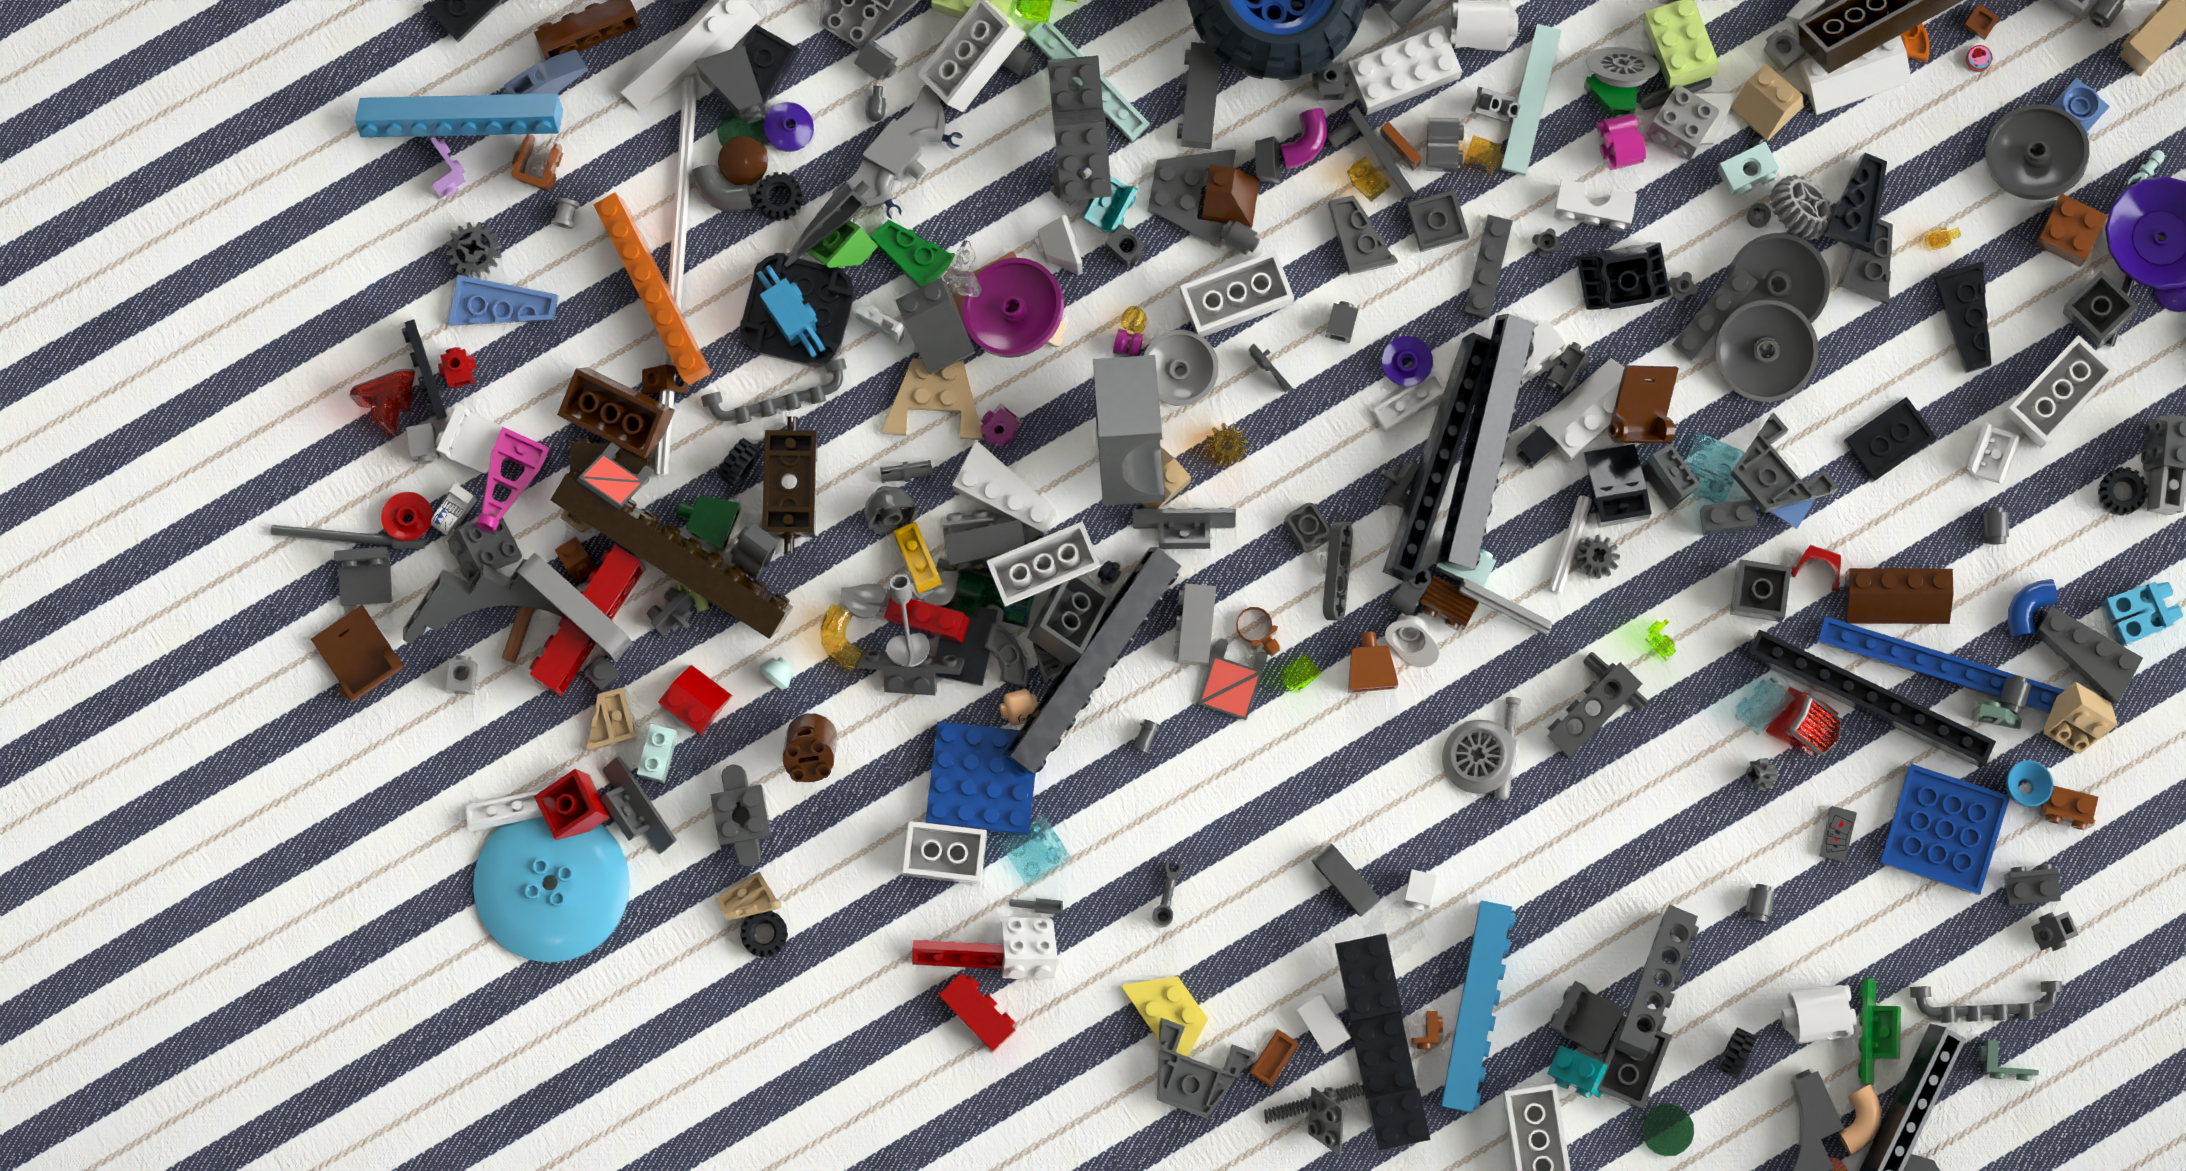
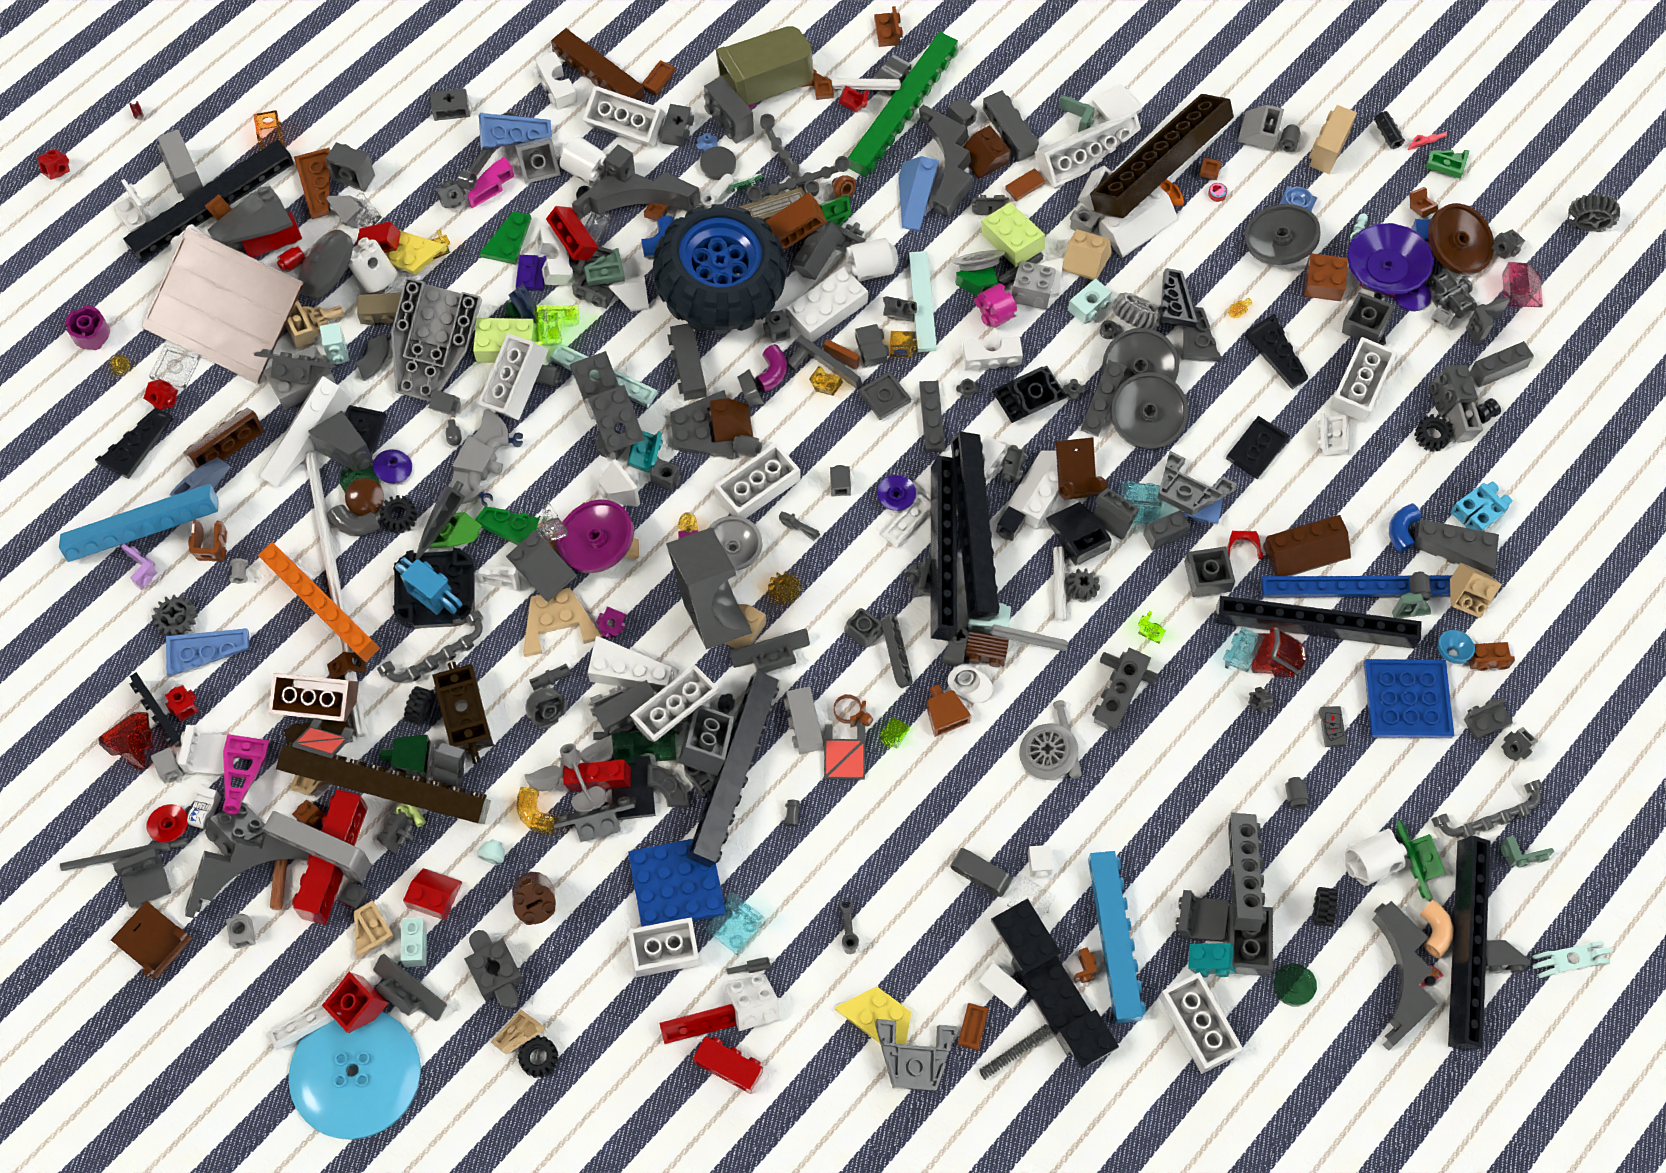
camera: 20 degrees left, 15 degrees down
(917, 557) = (576, 733): yellow tile -> none
(1018, 706) = (687, 820): light nougat head -> none
(1326, 1119) = (1032, 1058): dark grey hinge -> none
(1357, 238) = (832, 424): dark grey wing -> none
(1996, 526) = (1356, 481): dark grey brick -> none

